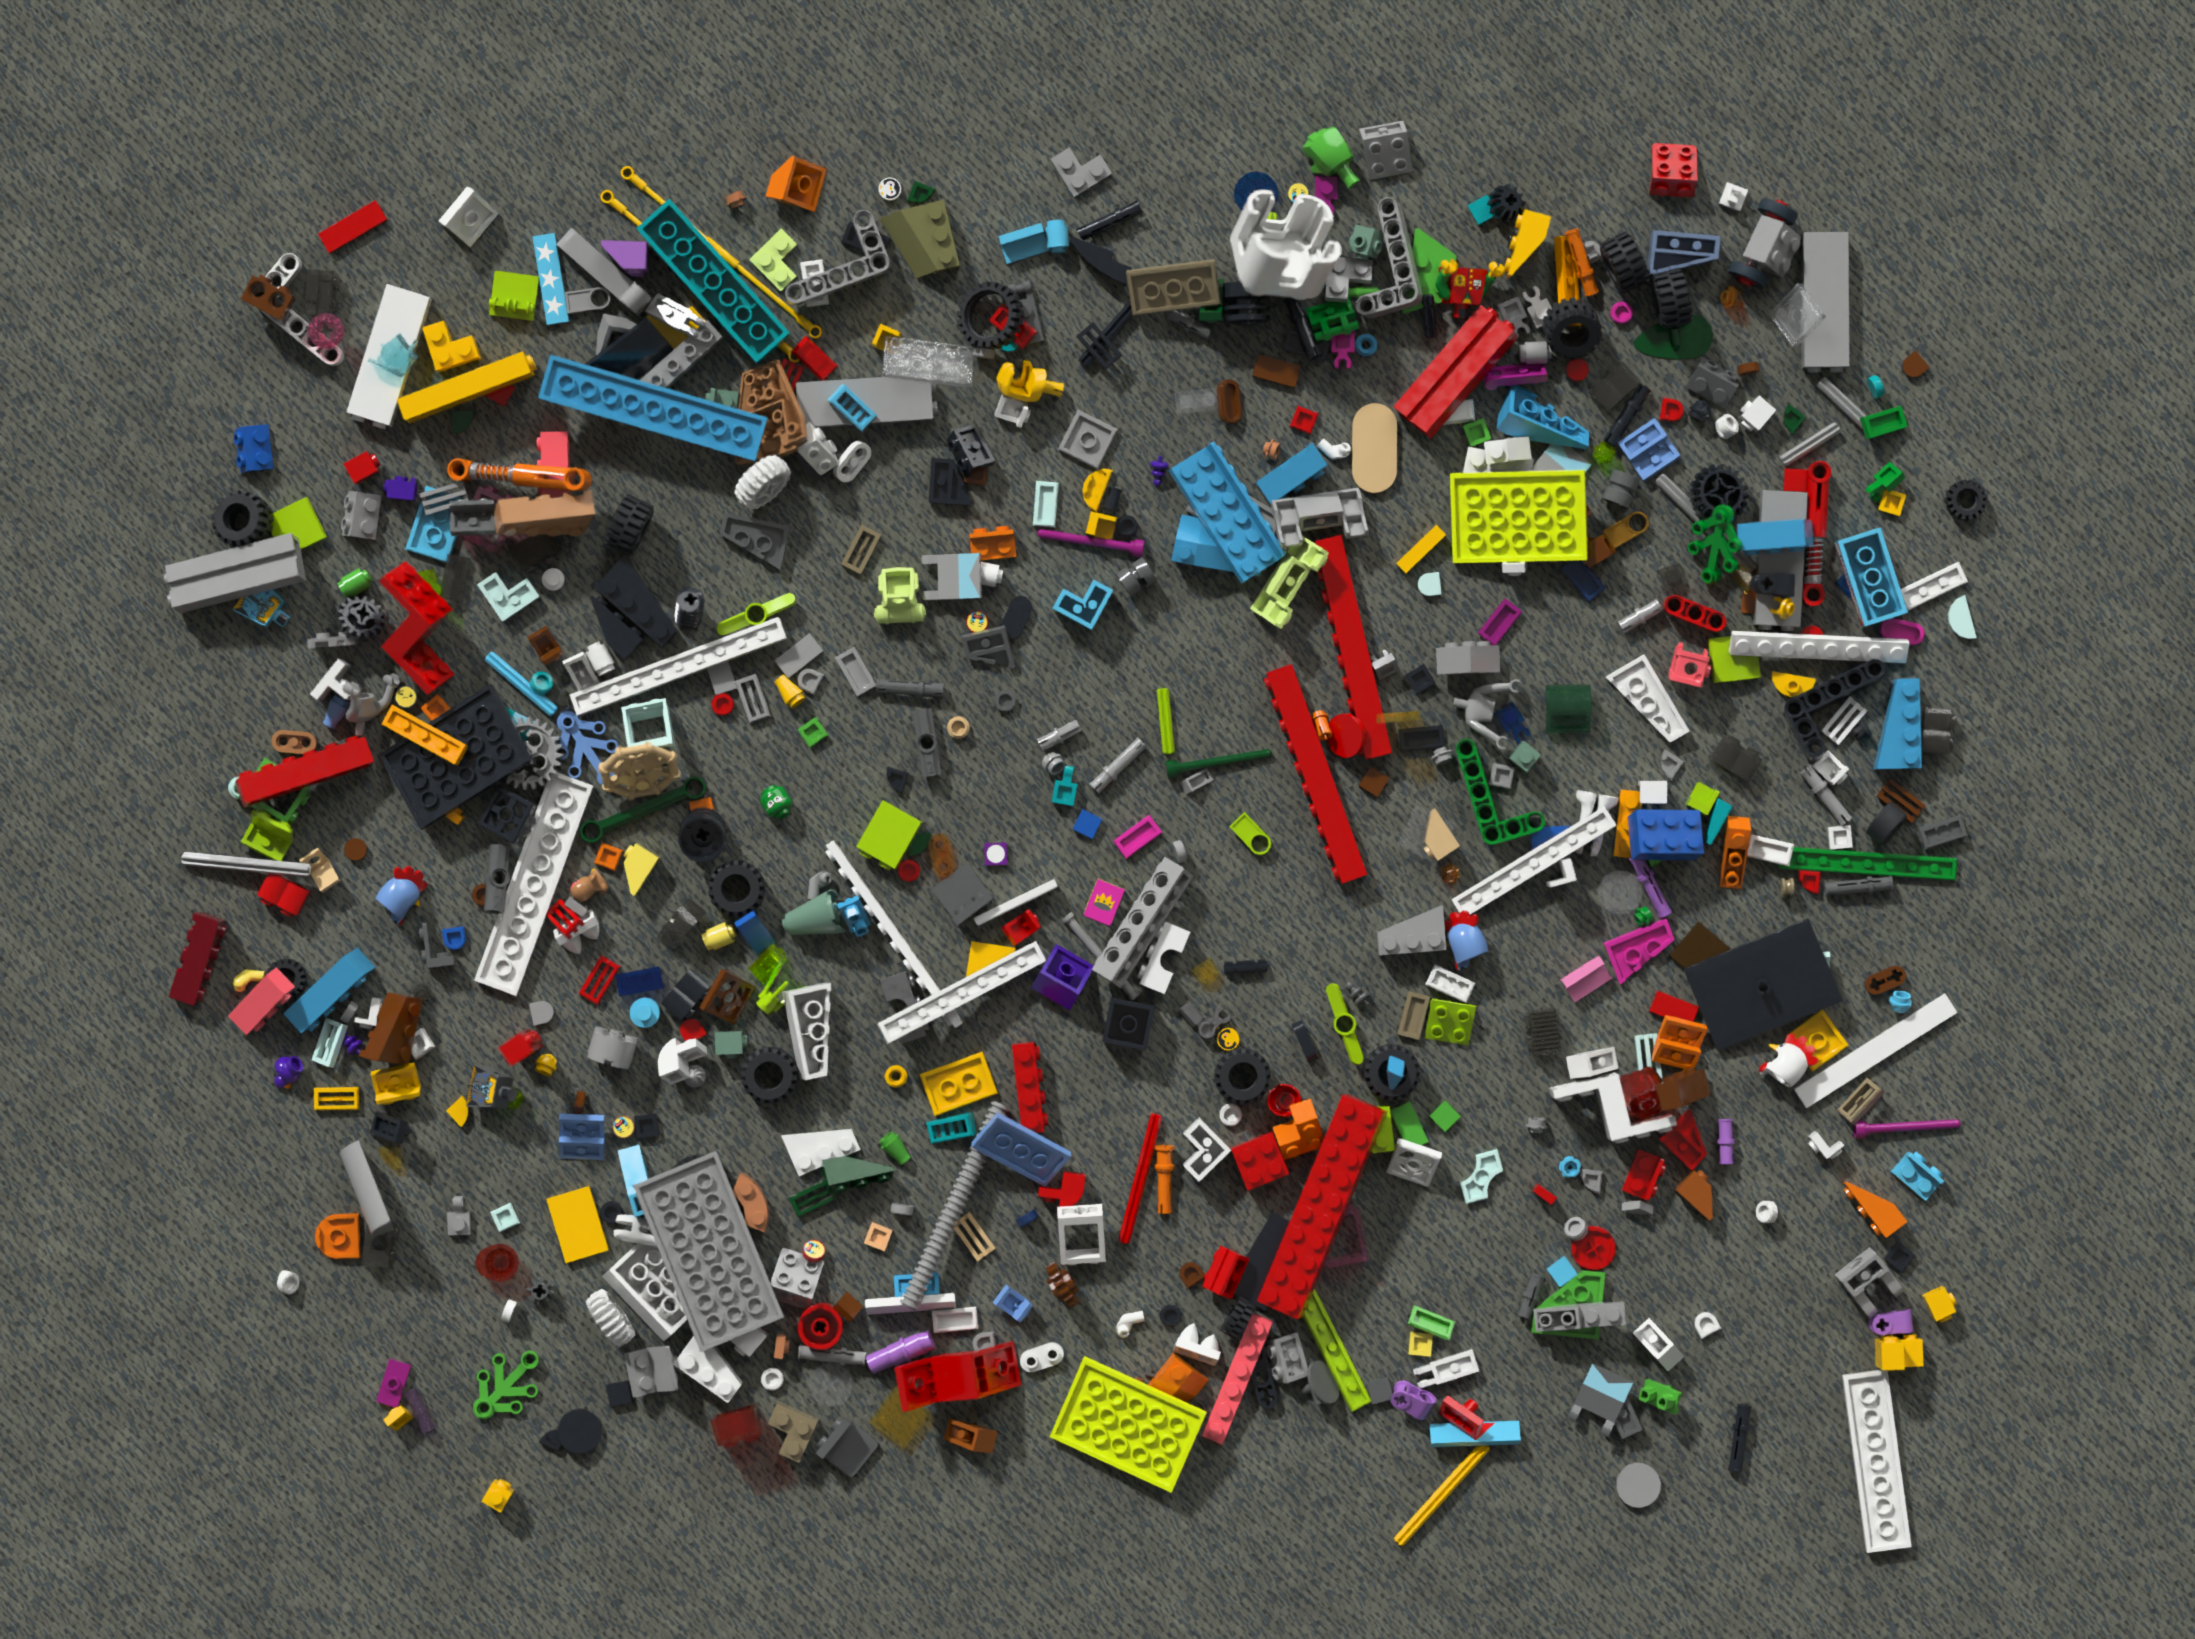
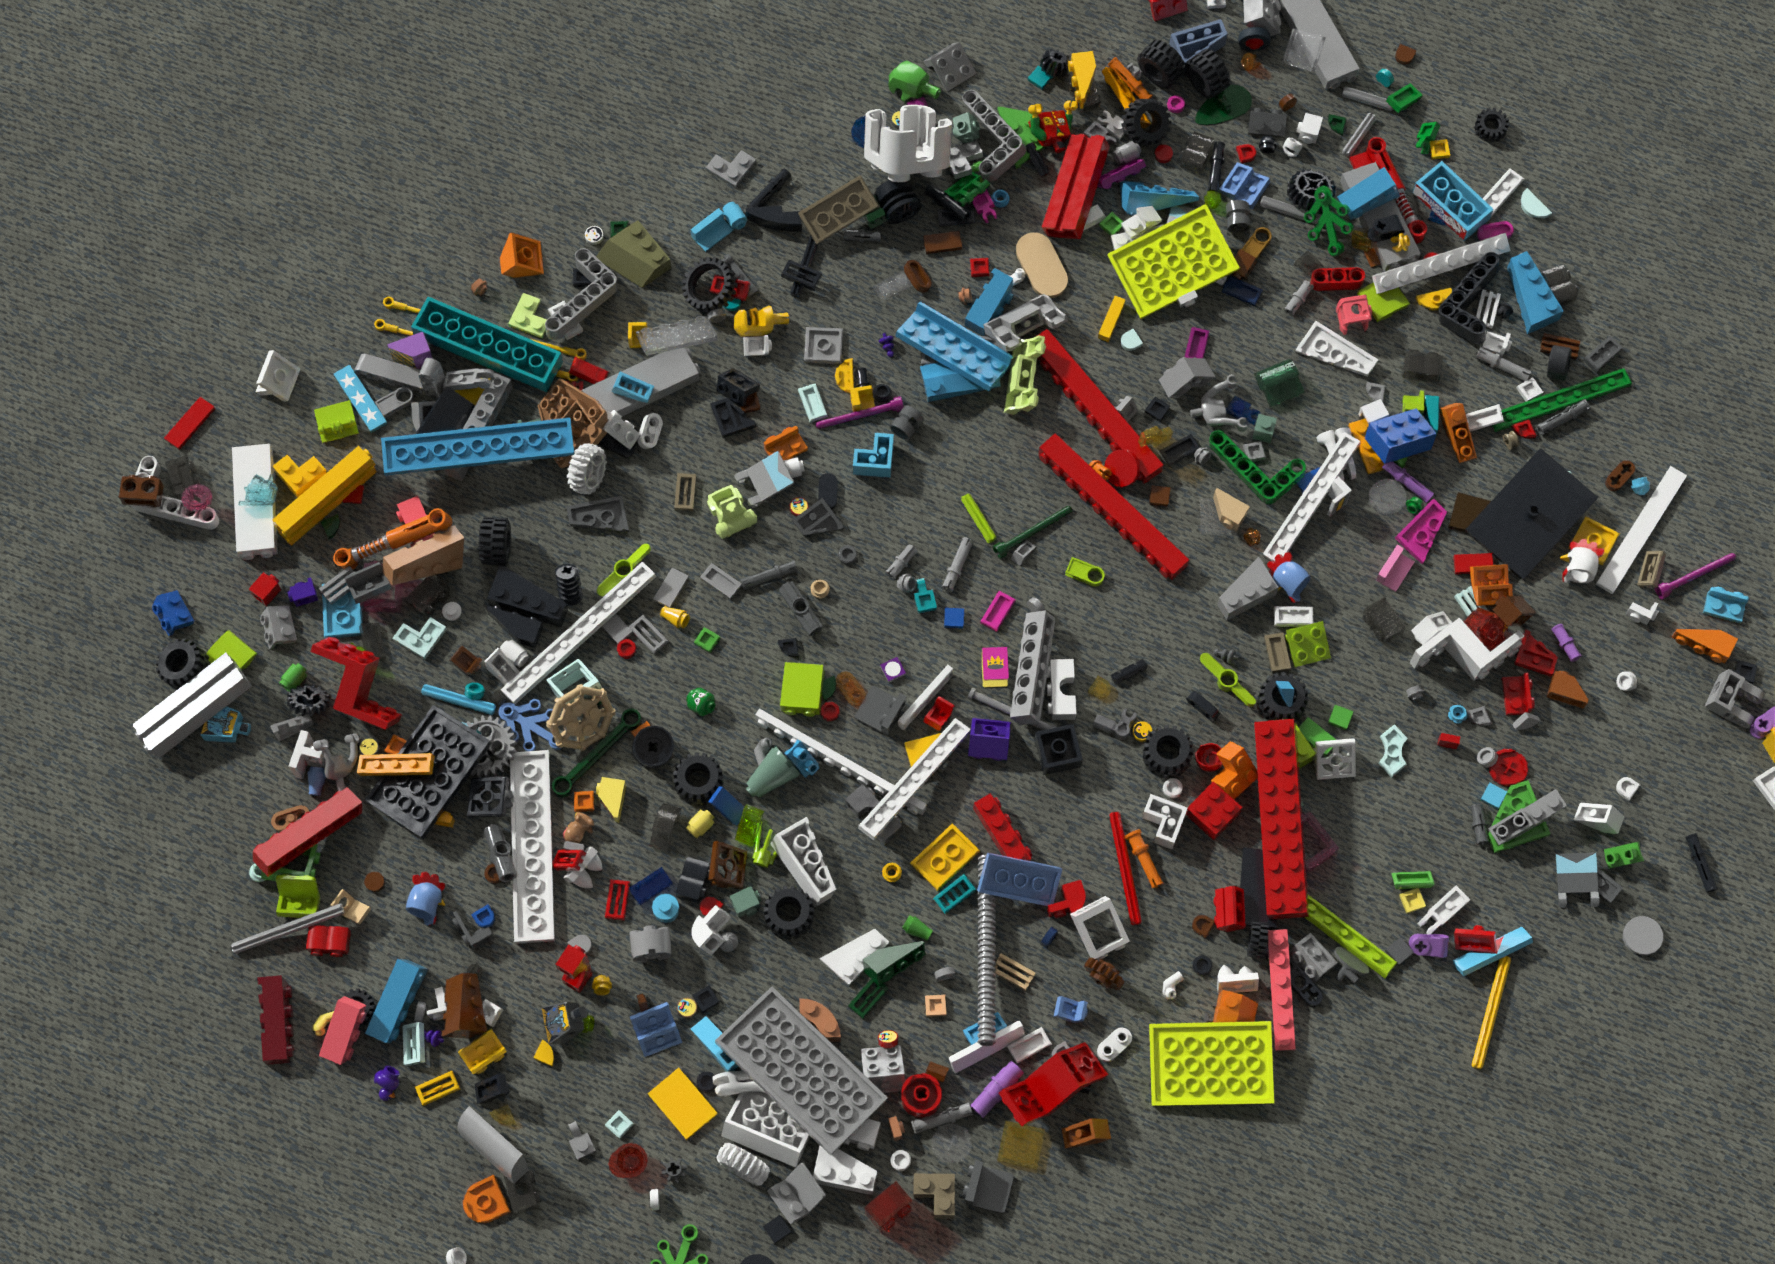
camera: 25 degrees left, 20 degrees down
(809, 680) = (687, 602): light grey tile -> none

